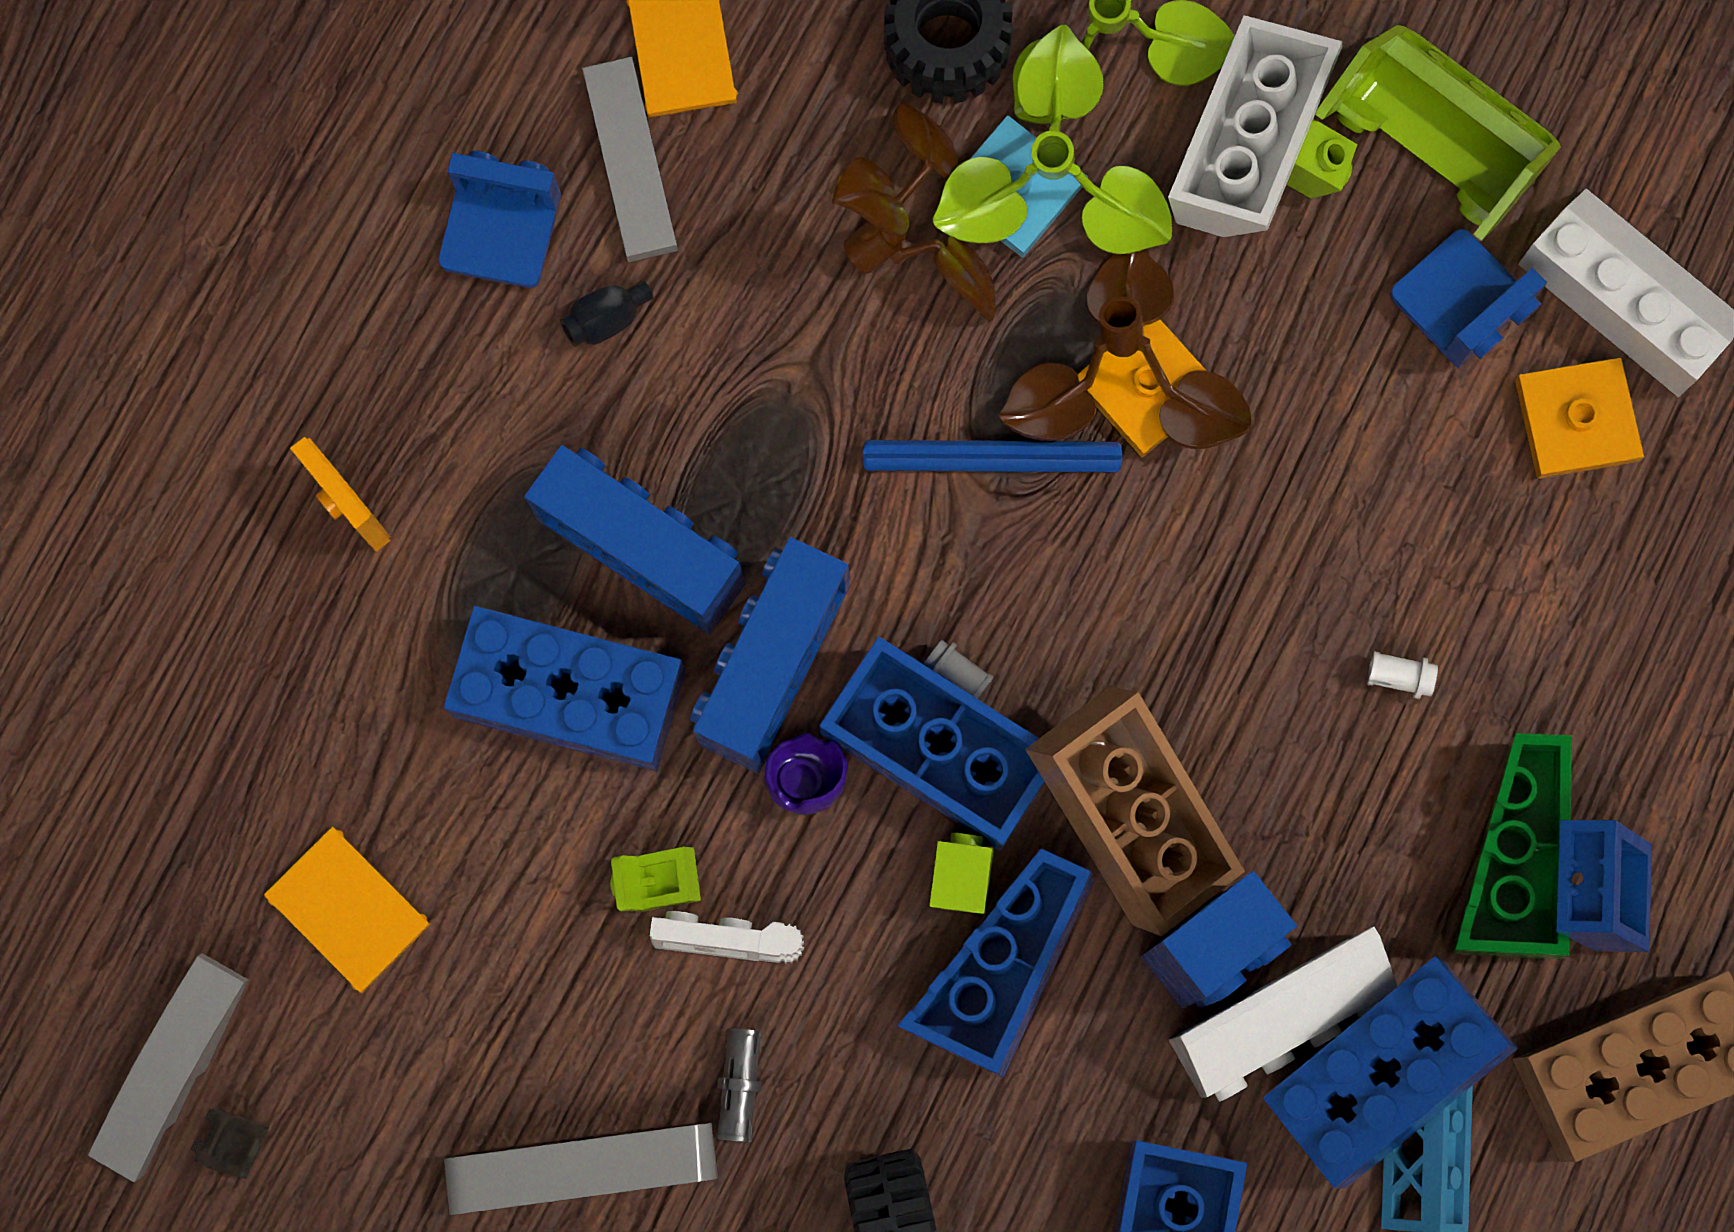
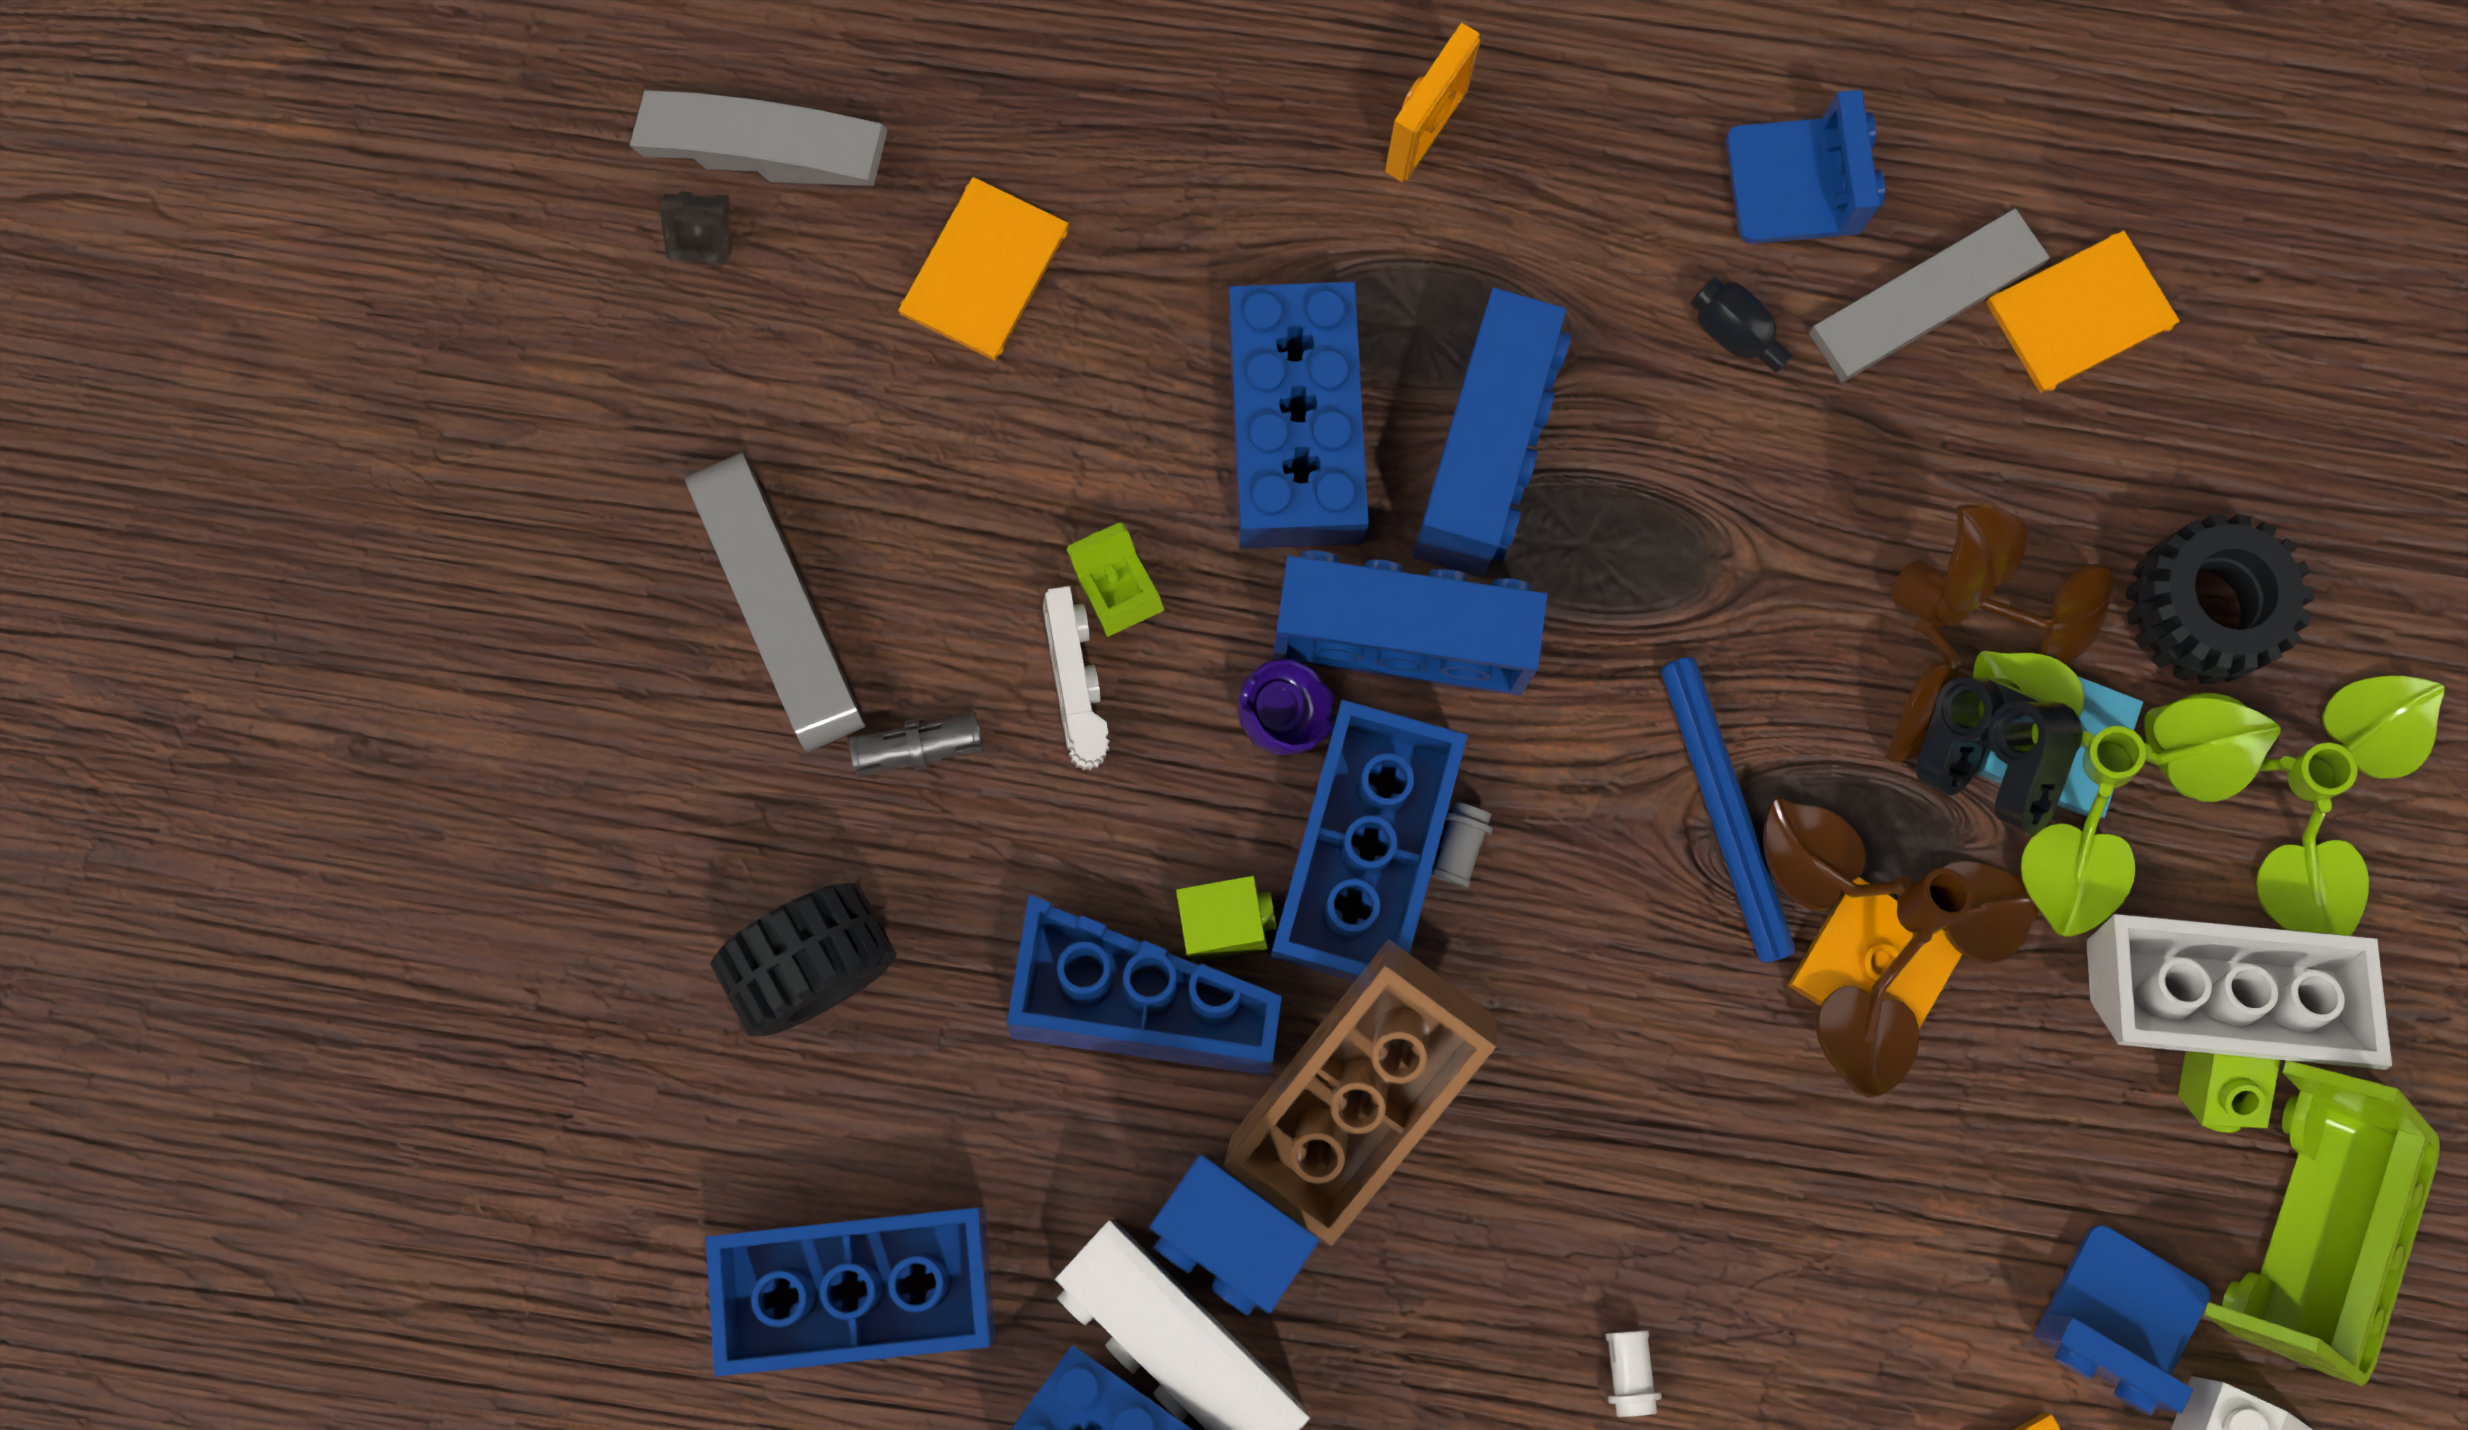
camera: 65 degrees right, 0 degrees up
(1042, 216) = (2033, 771): none -> black piece

